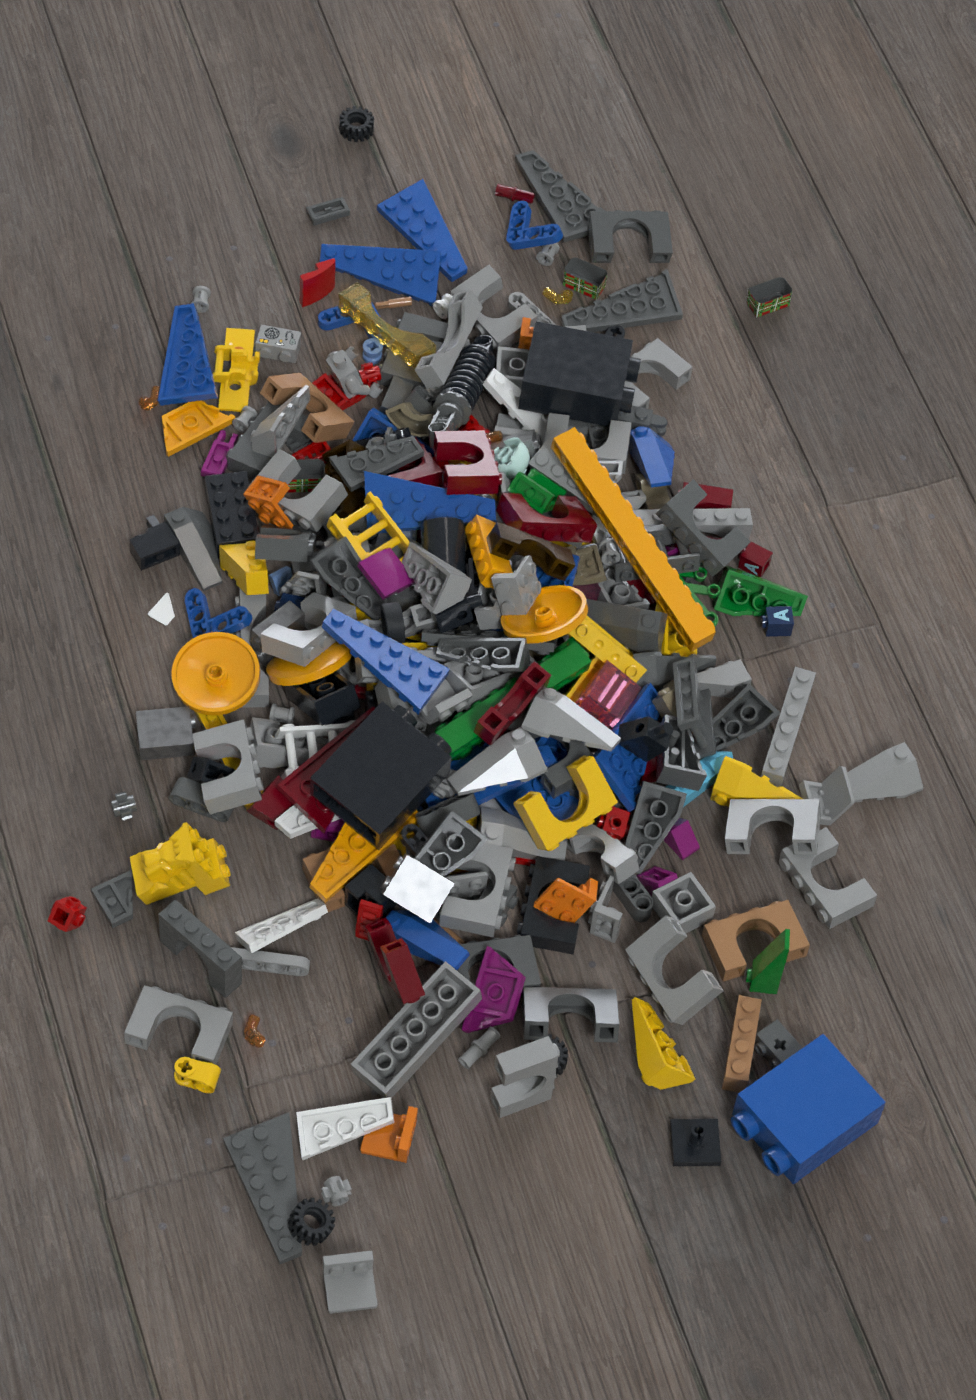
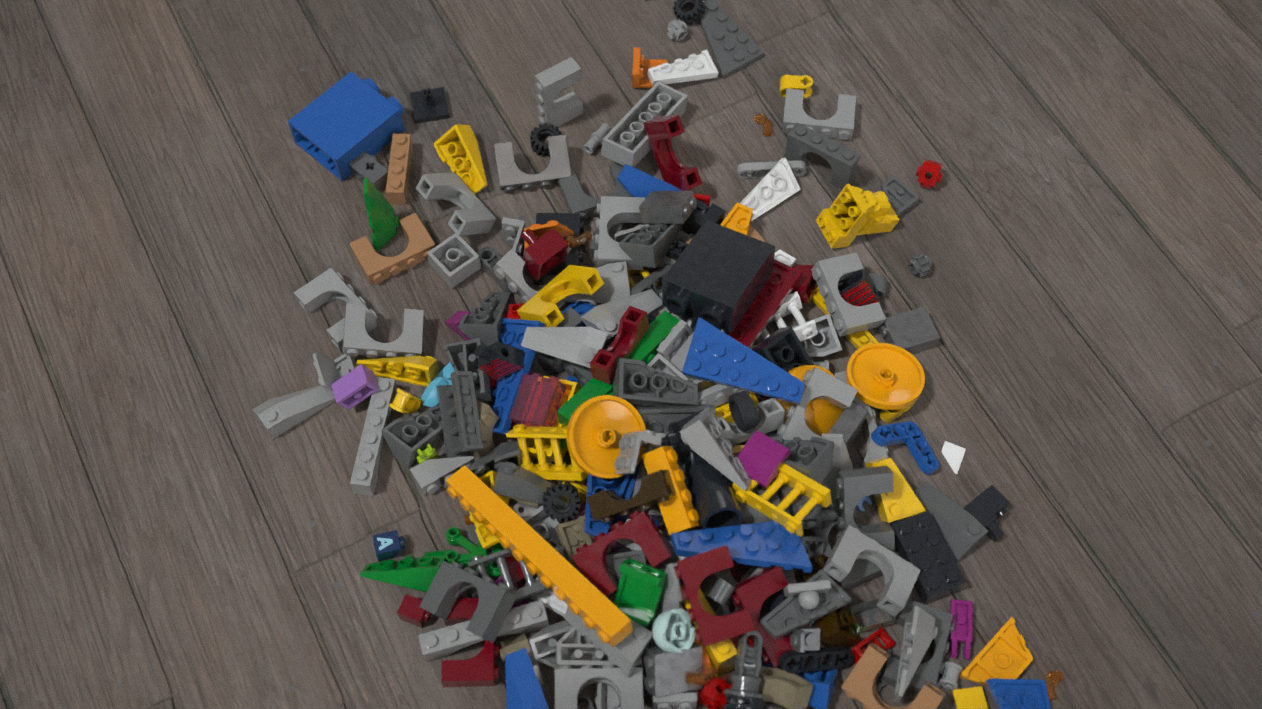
camera: 175 degrees right, 5 degrees up
(264, 497) = (897, 546): orange bracket -> none
(372, 460) = (808, 592): none -> light grey tile
(500, 993) = (591, 169): magenta wing -> none
(527, 891) = (581, 239): none -> clear orange arm
(577, 861) = (543, 253): none -> dark red brick
(599, 592) = (561, 489): none -> black tyre
(656, 878) = (476, 280): magenta slope -> none
(730, 692) = (428, 453): none -> lime plate
(754, 750) = (405, 402): none -> yellow piece
(807, 765) = (354, 387): none -> medium lavender brick

